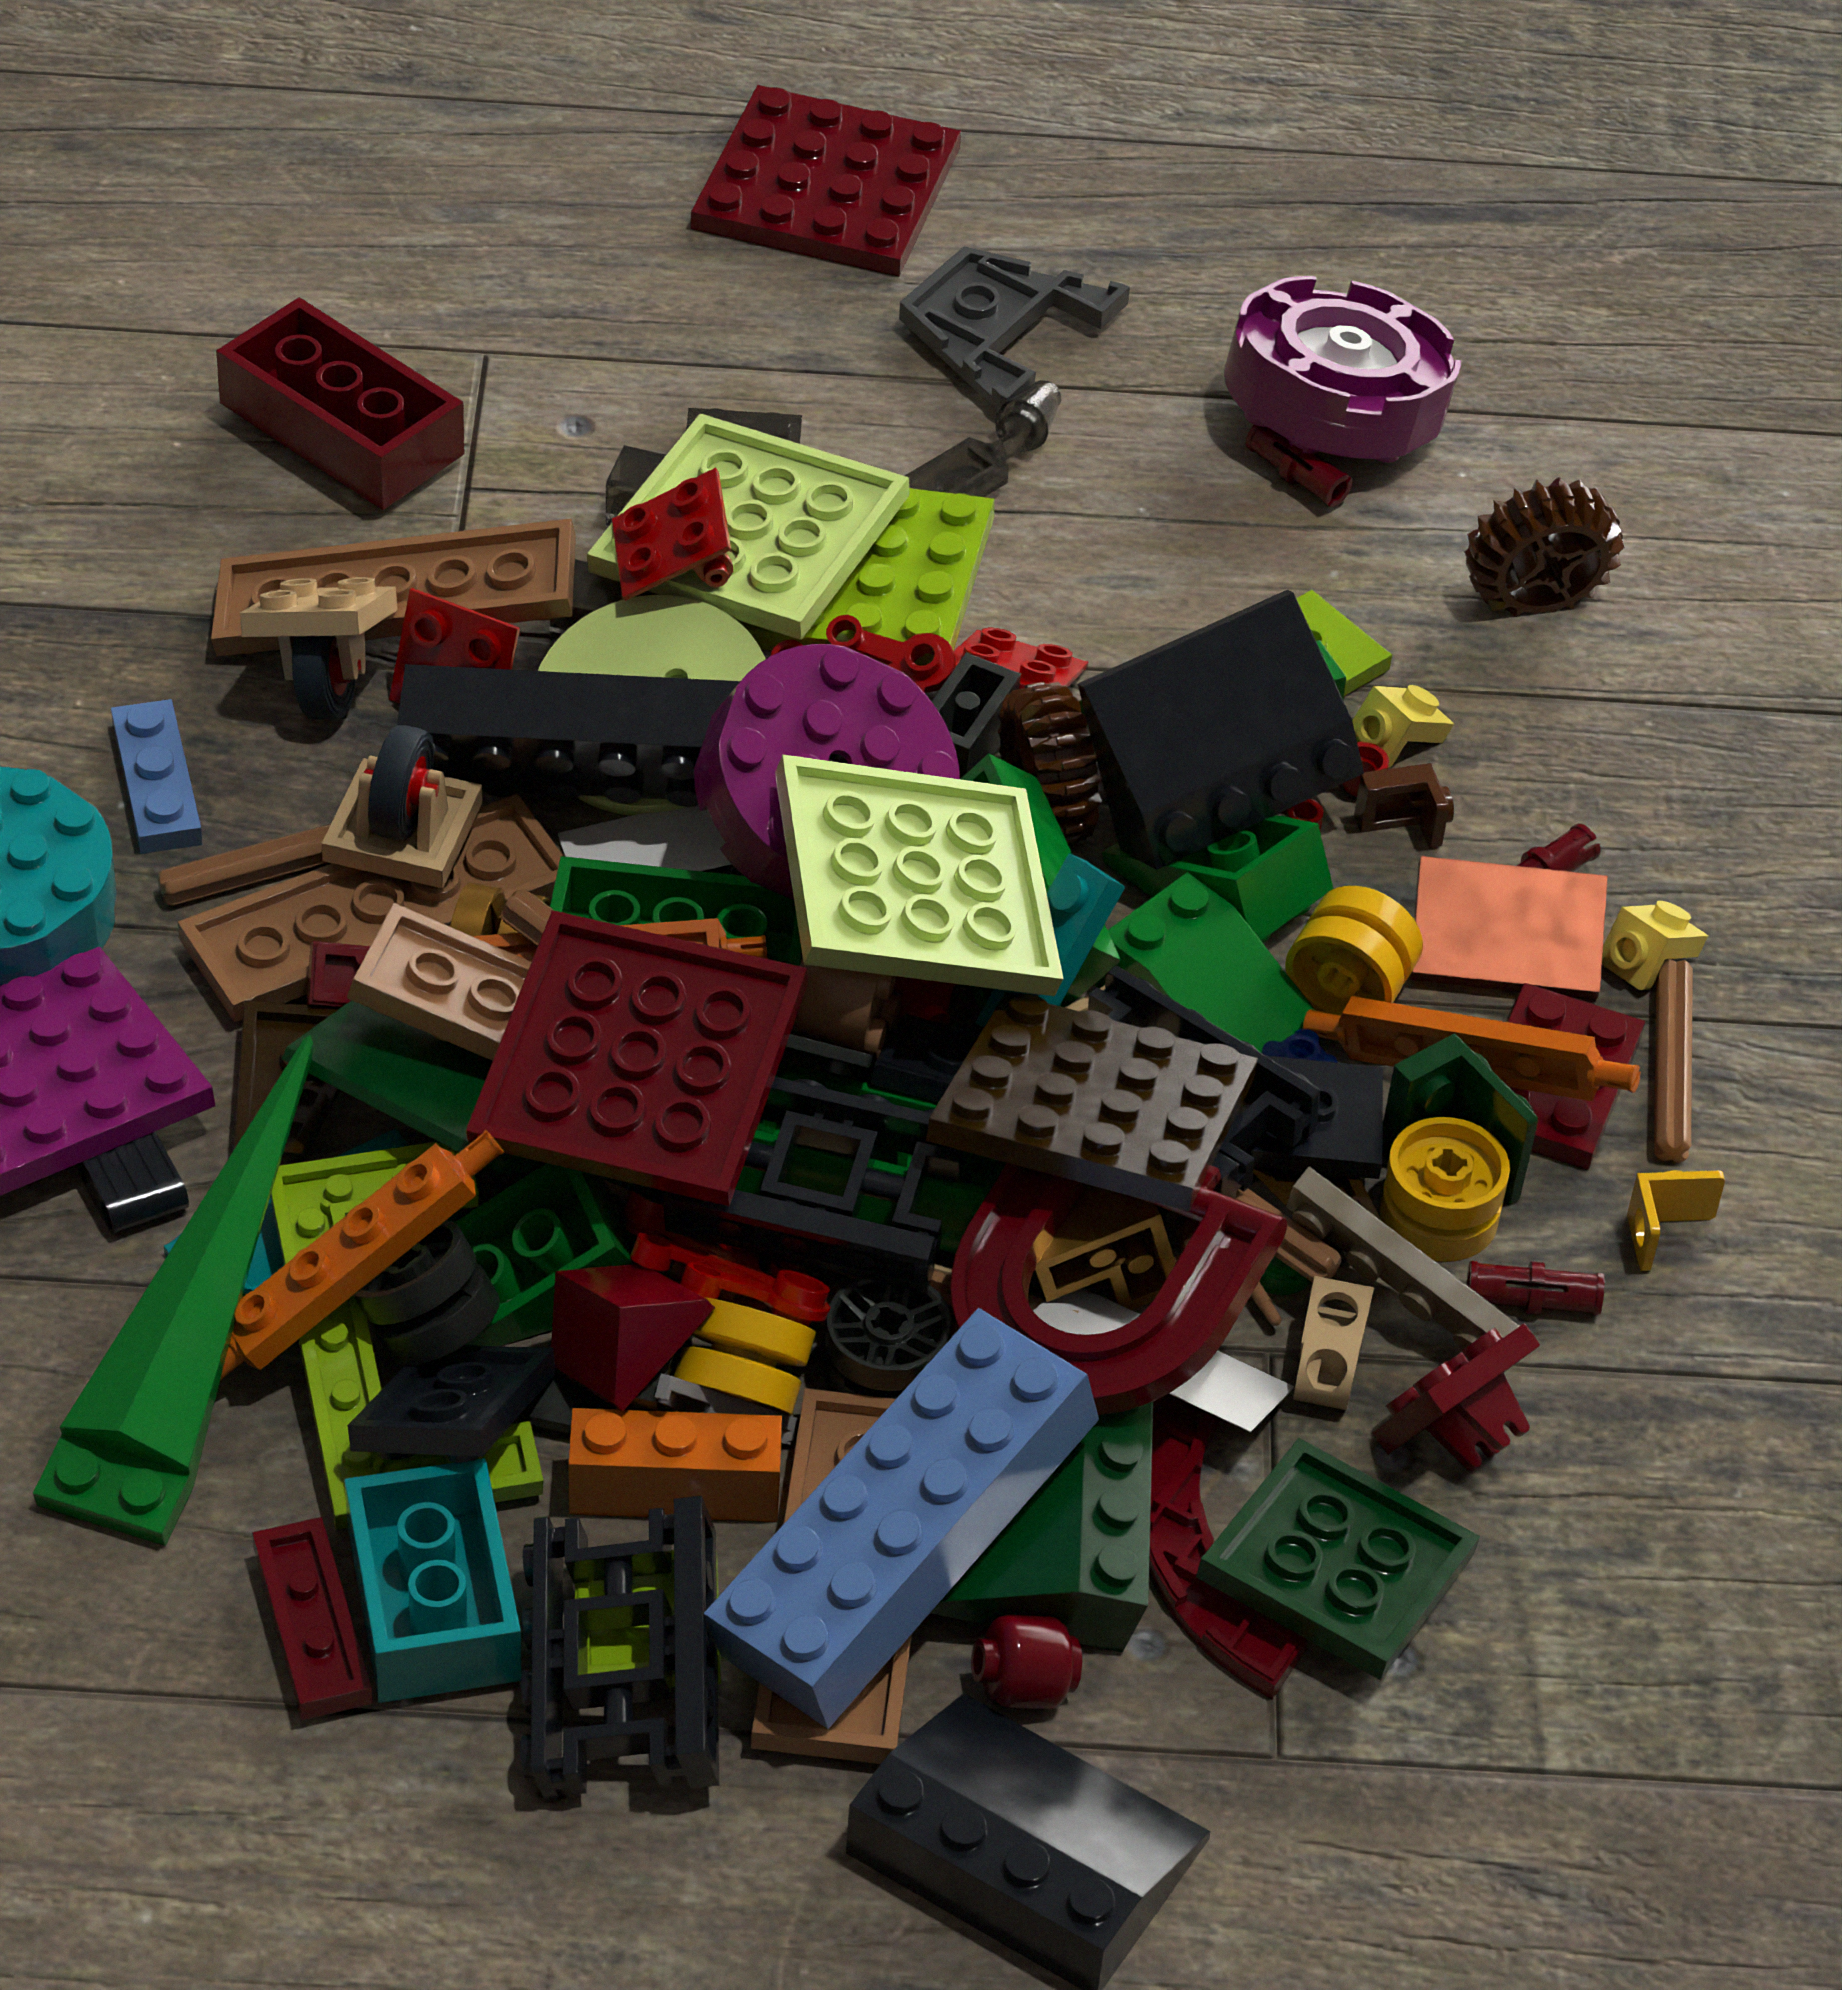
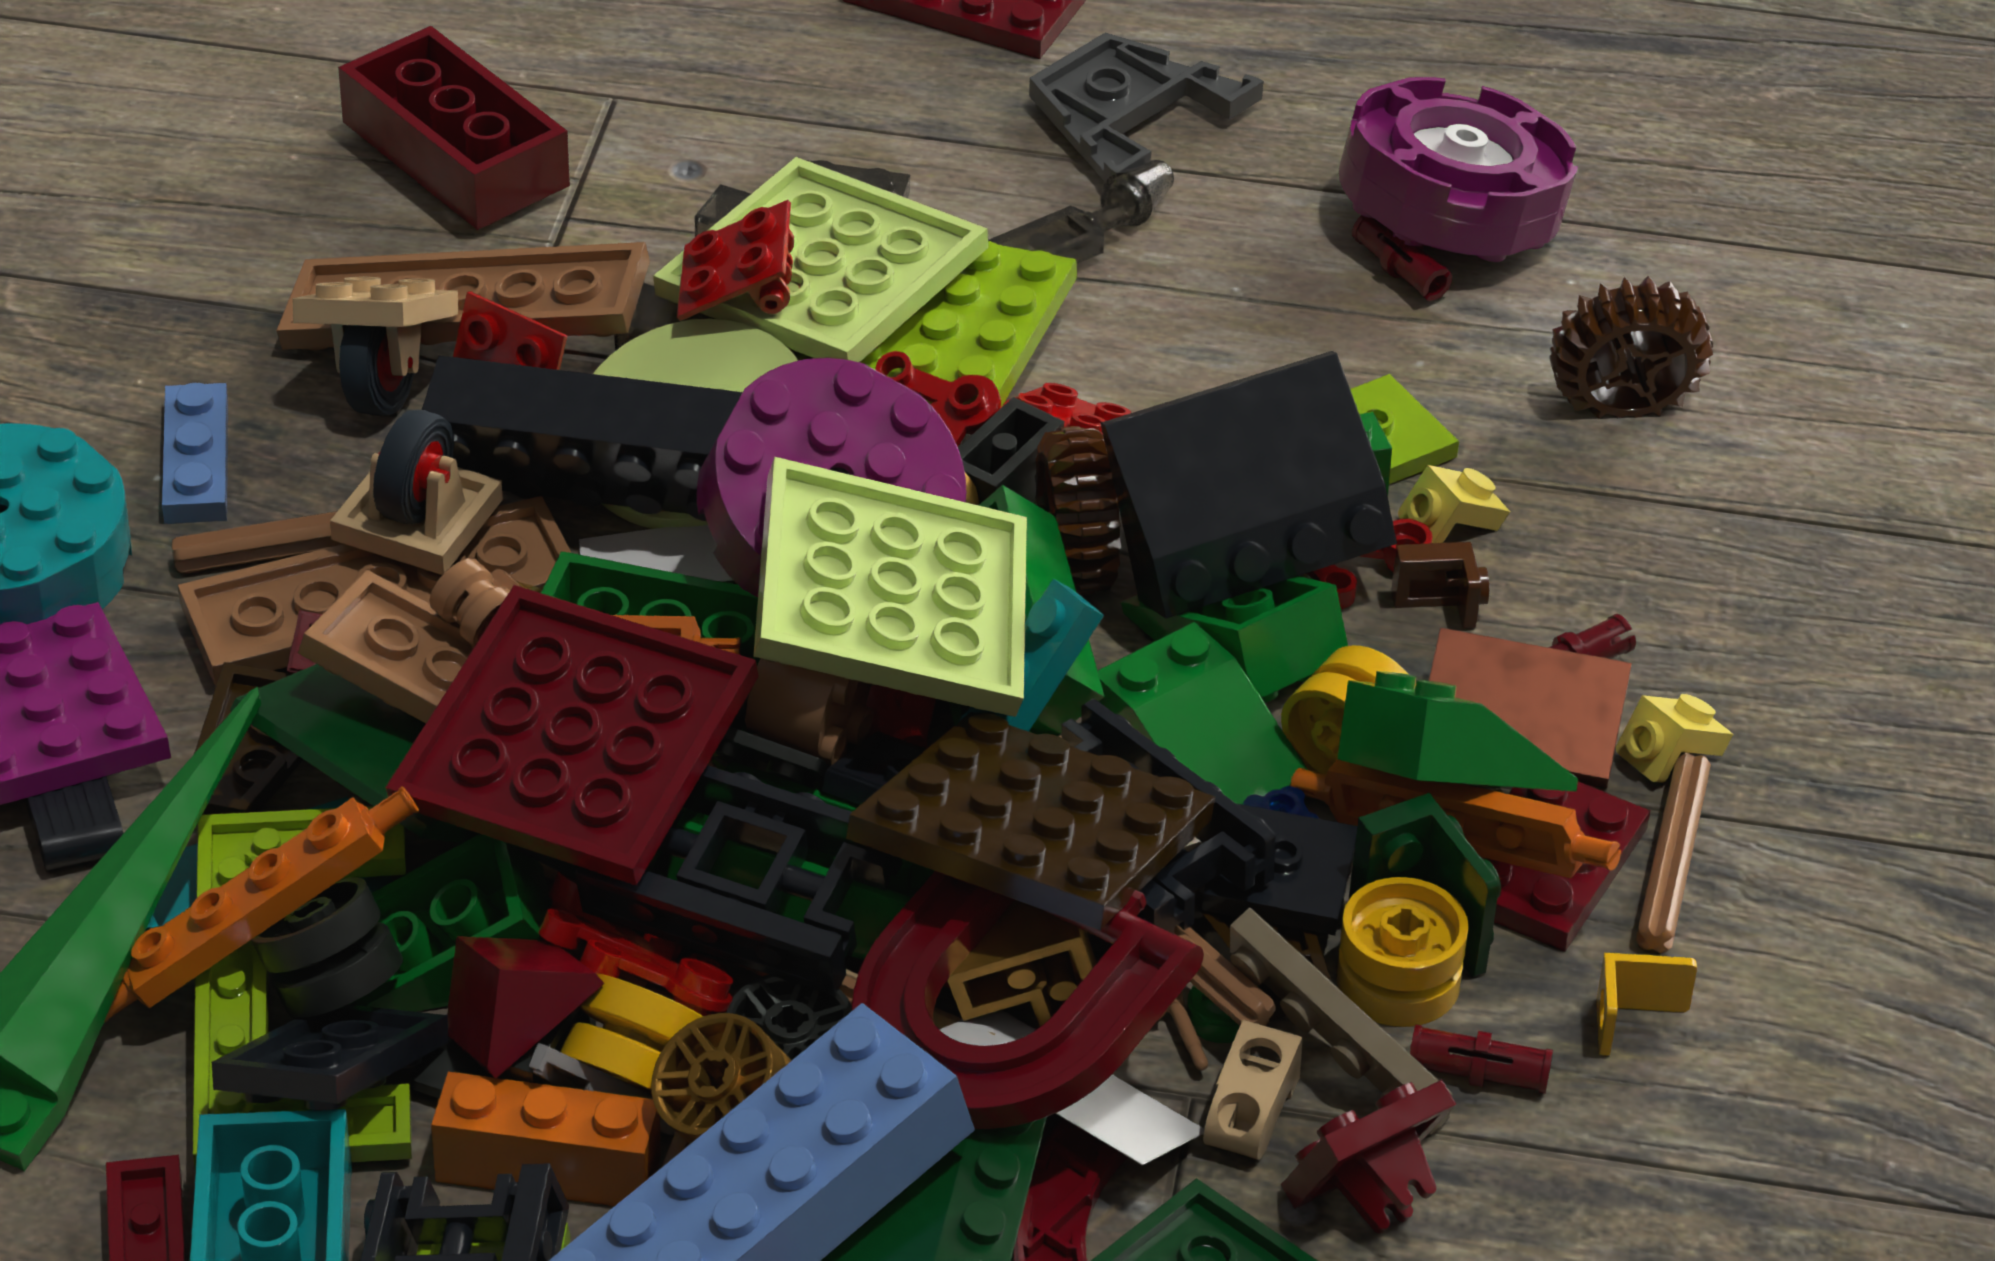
camera: 10 degrees right, 5 degrees down
(507, 928) = (468, 598): none -> medium nougat wheel
(839, 1390) = (711, 1071): none -> pearl gold wheel
(1450, 975) = (1439, 737): none -> green slope

